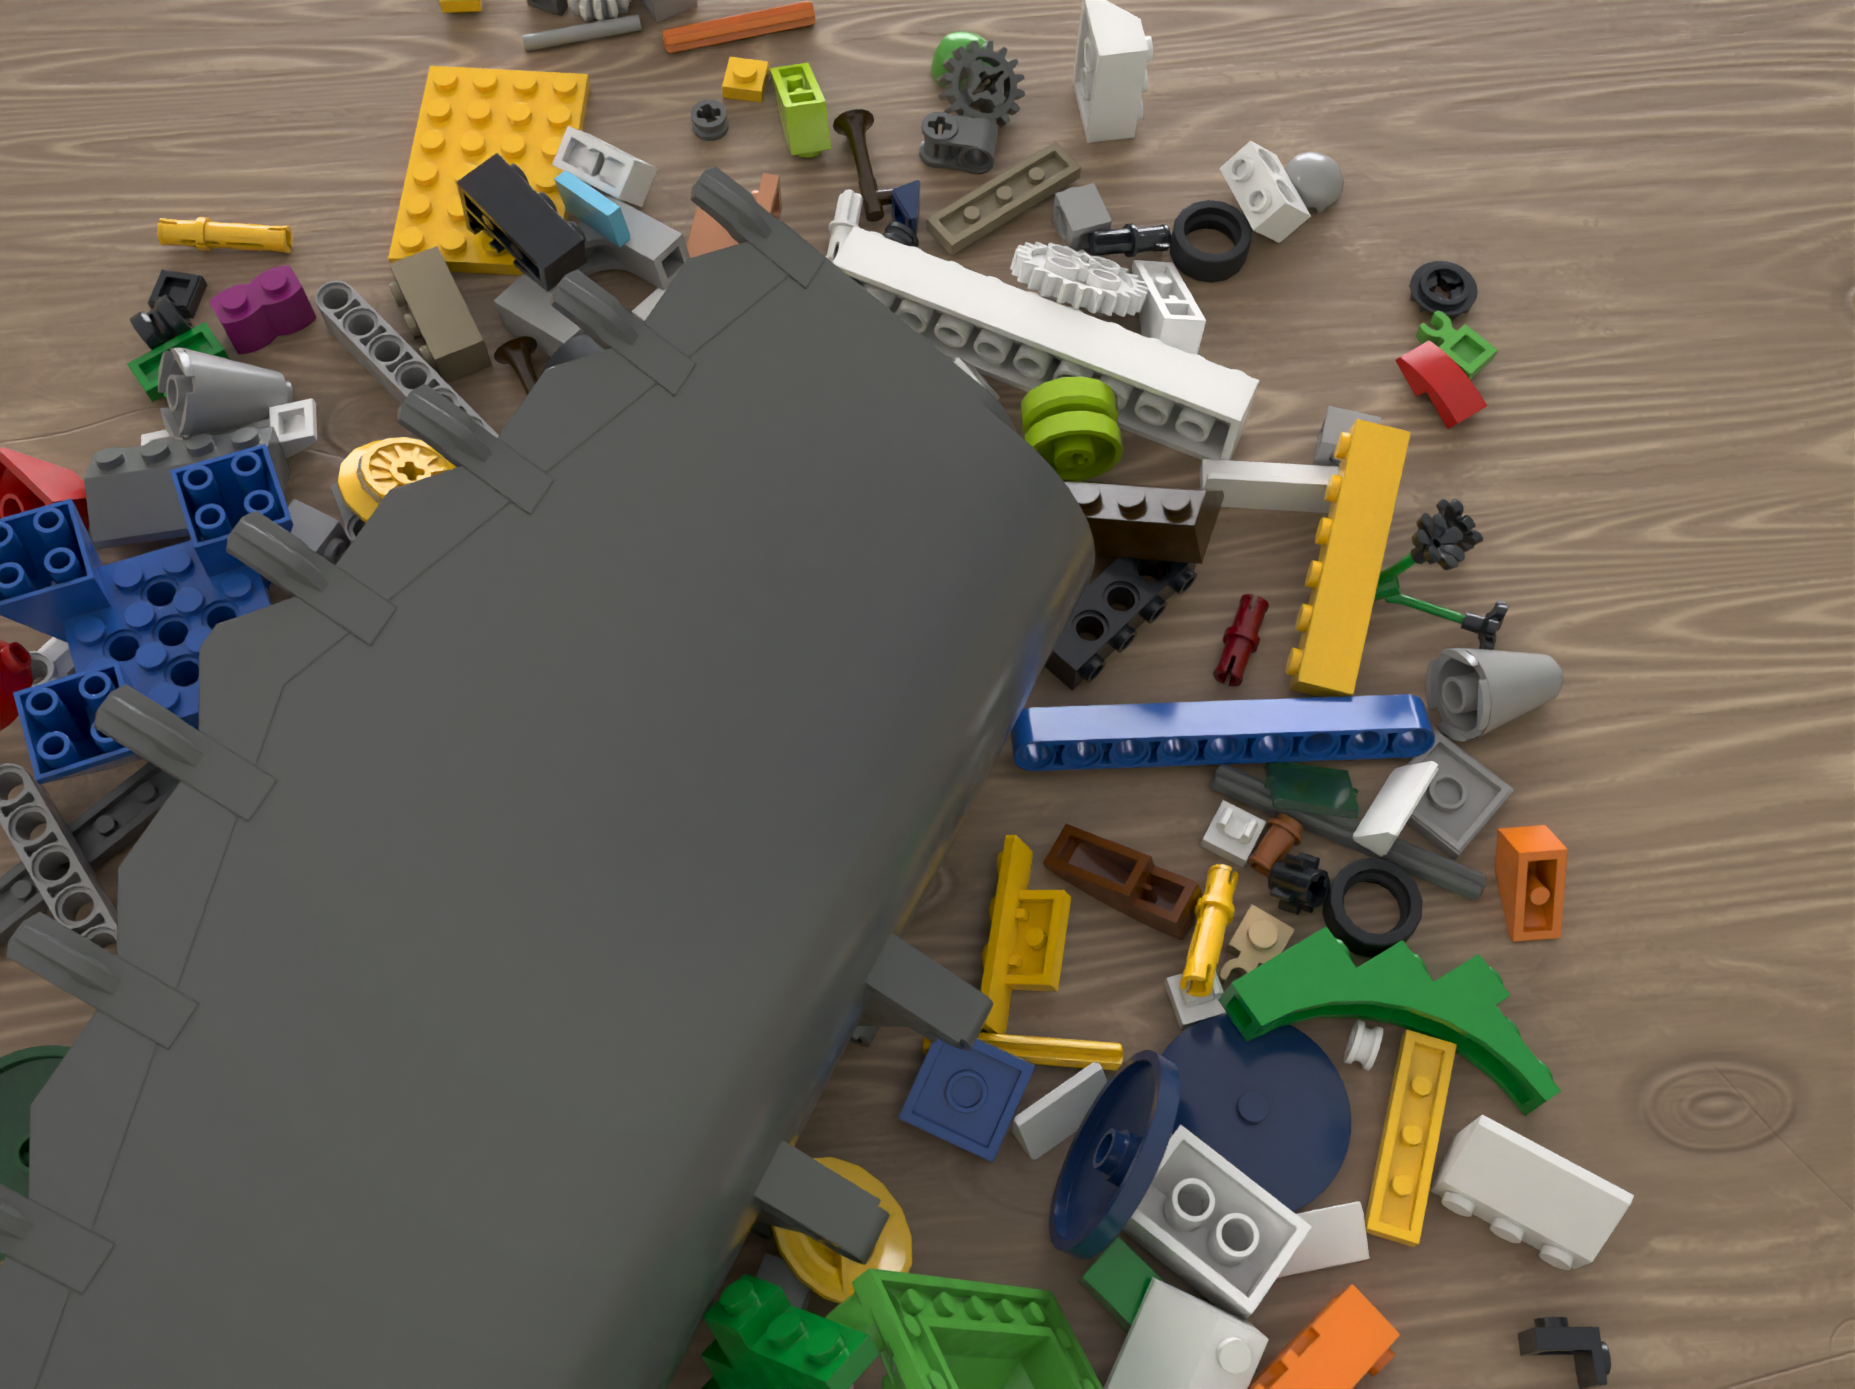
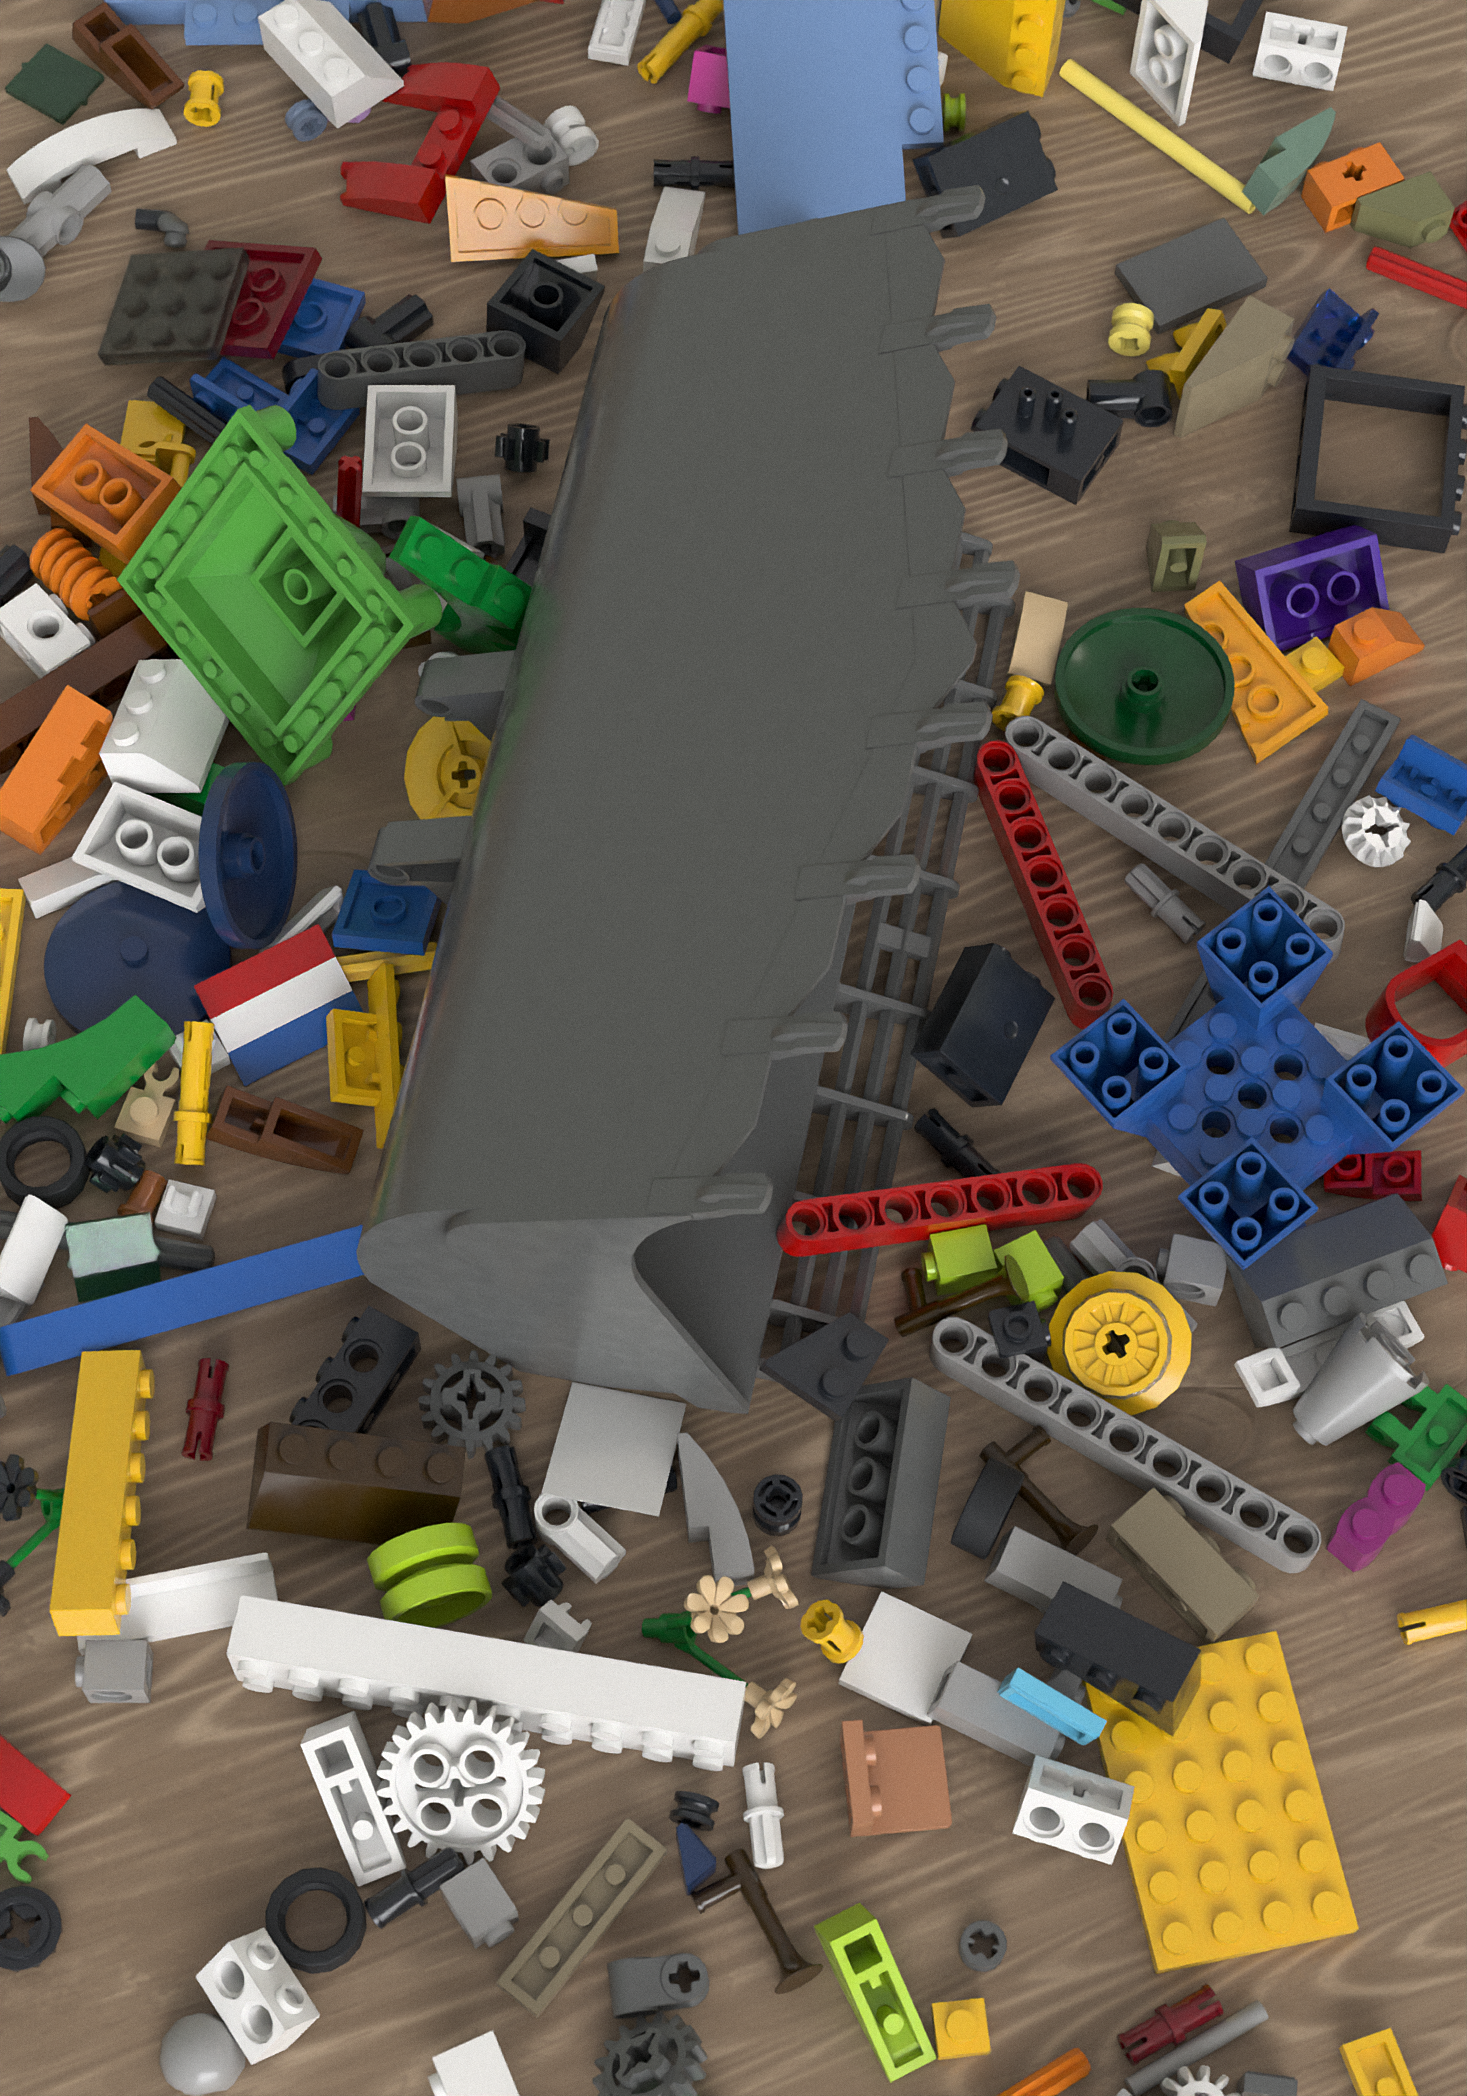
camera: 165 degrees right, 0 degrees up
(594, 45) = (1170, 2024): none -> dark red pin
(1103, 1016) = (277, 1003): none -> sticker

